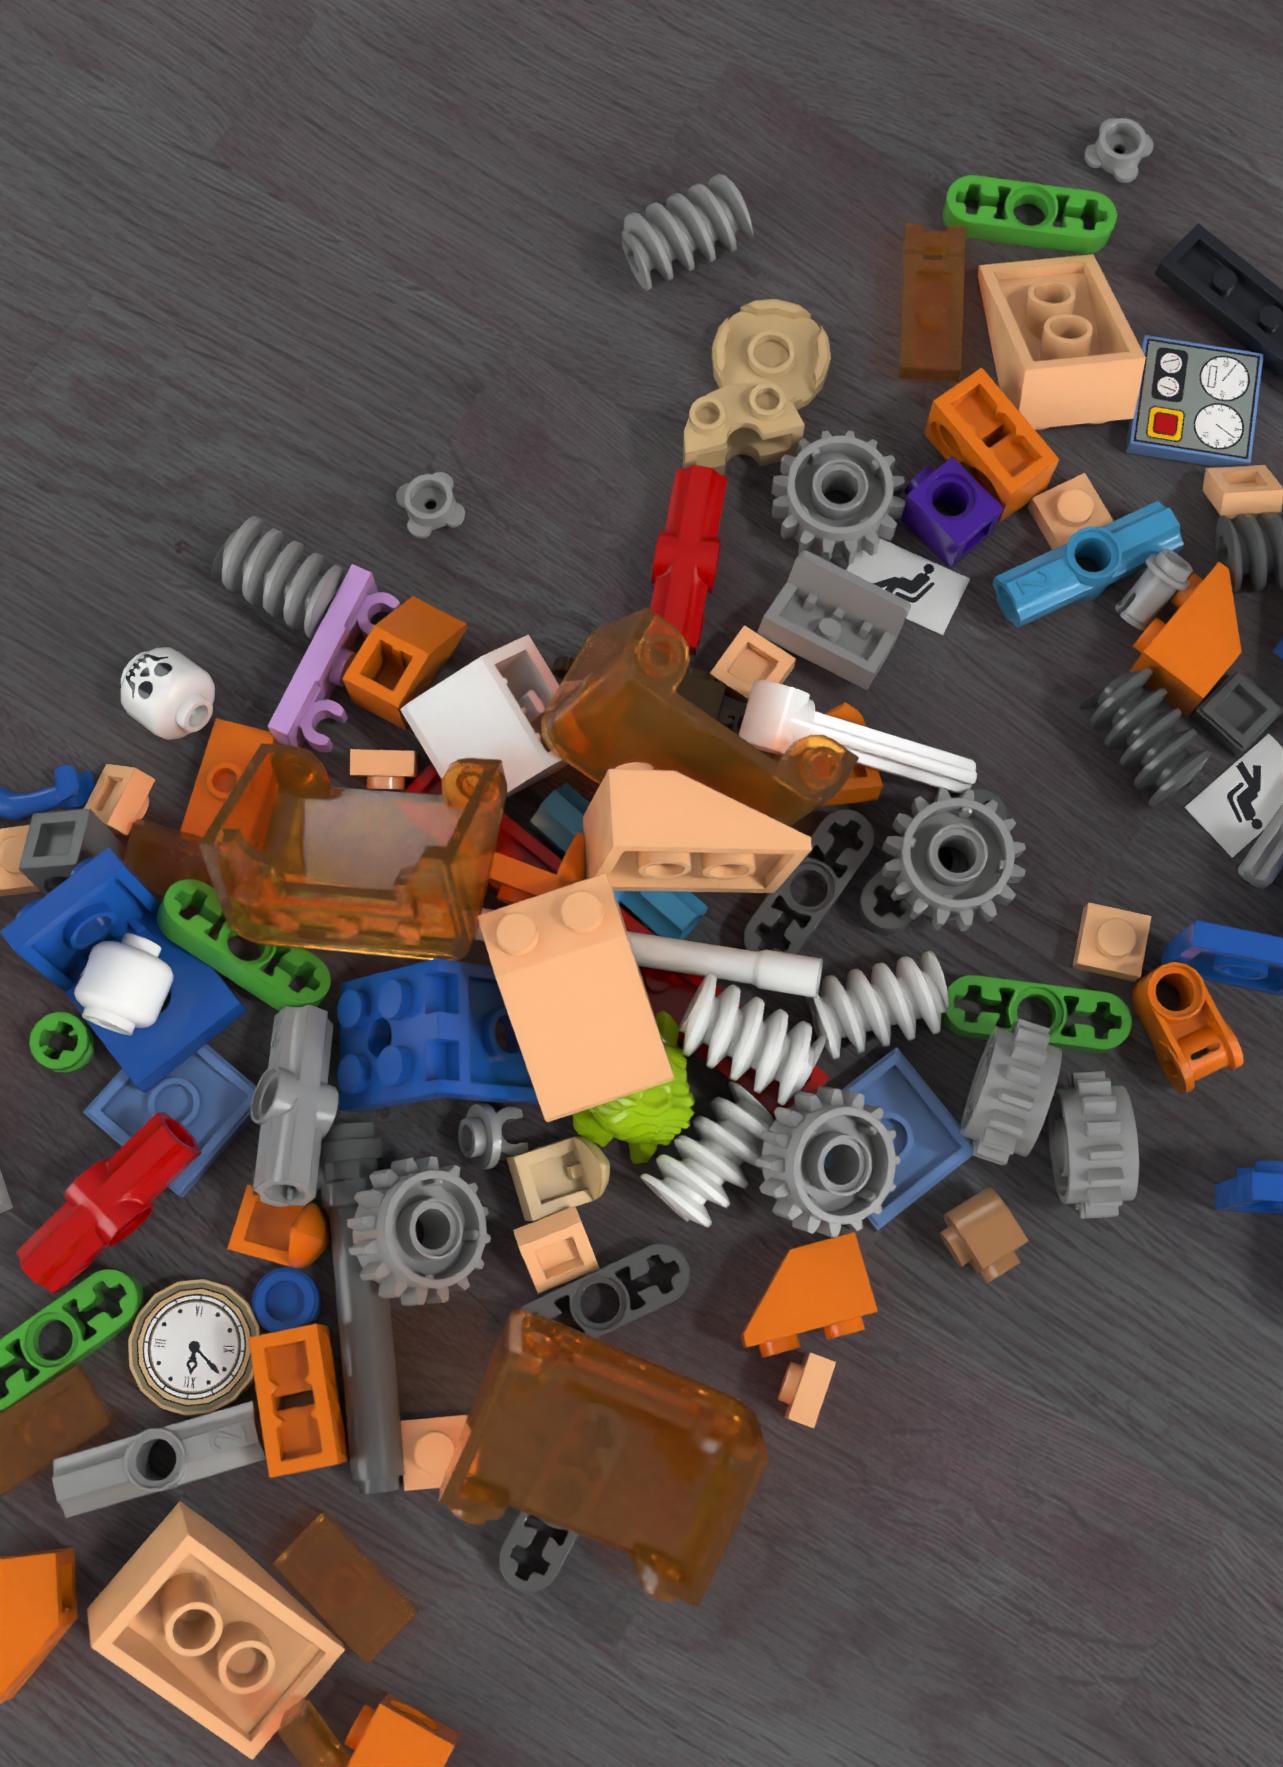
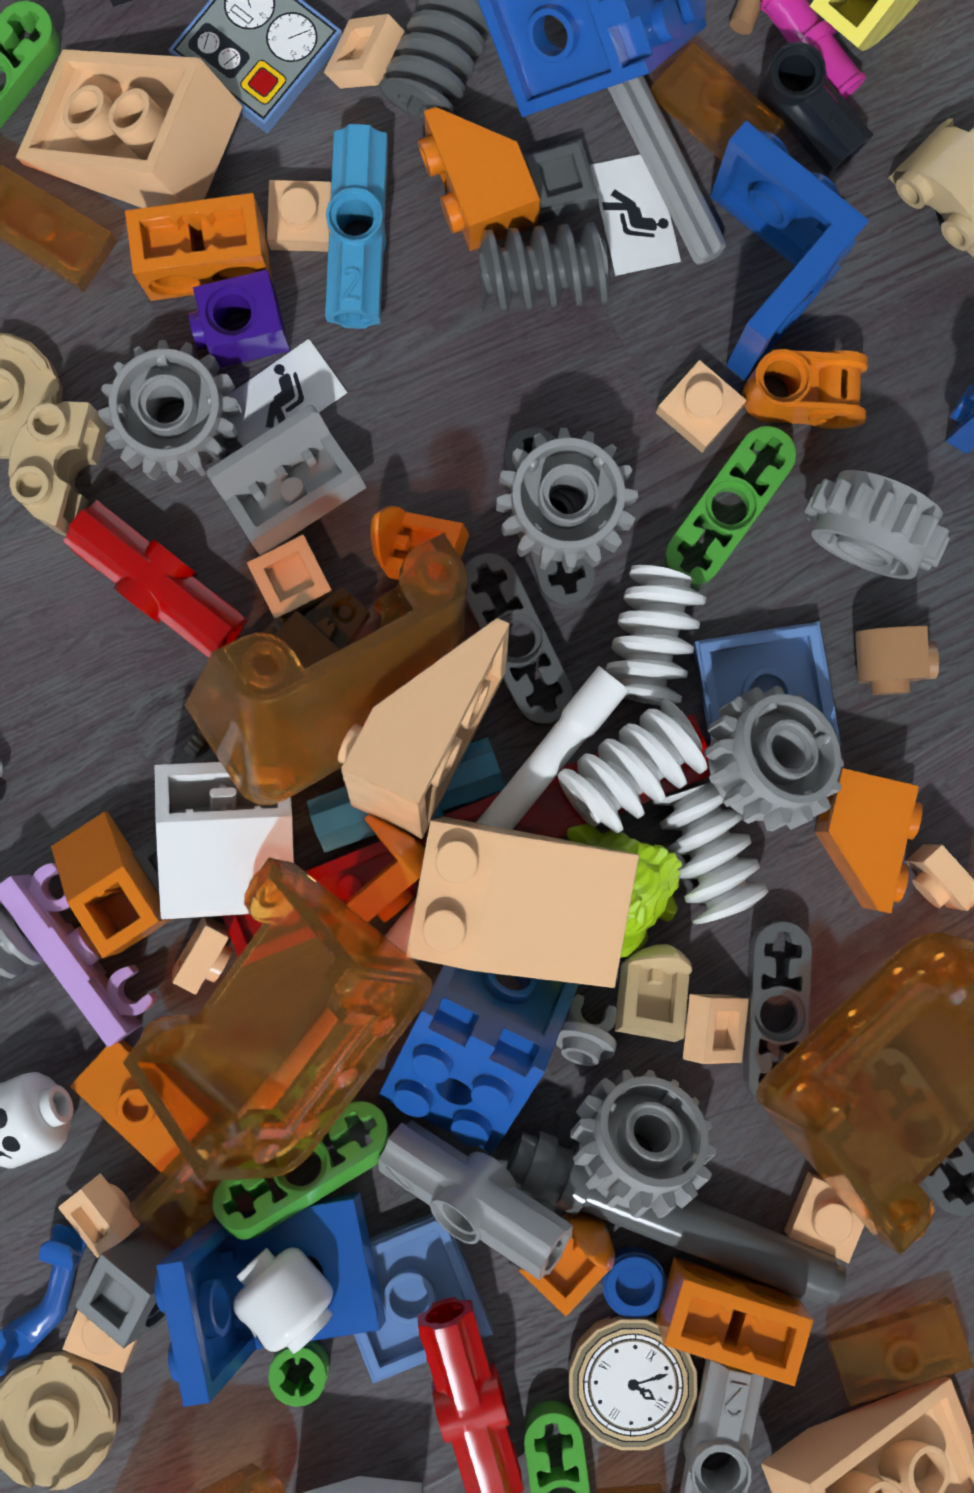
camera: 60 degrees left, 10 degrees up
(783, 714) = (367, 576): white axle -> none
(1011, 1092) = (796, 567): light grey gear -> none
(1154, 588) = (413, 182): light grey pin -> none

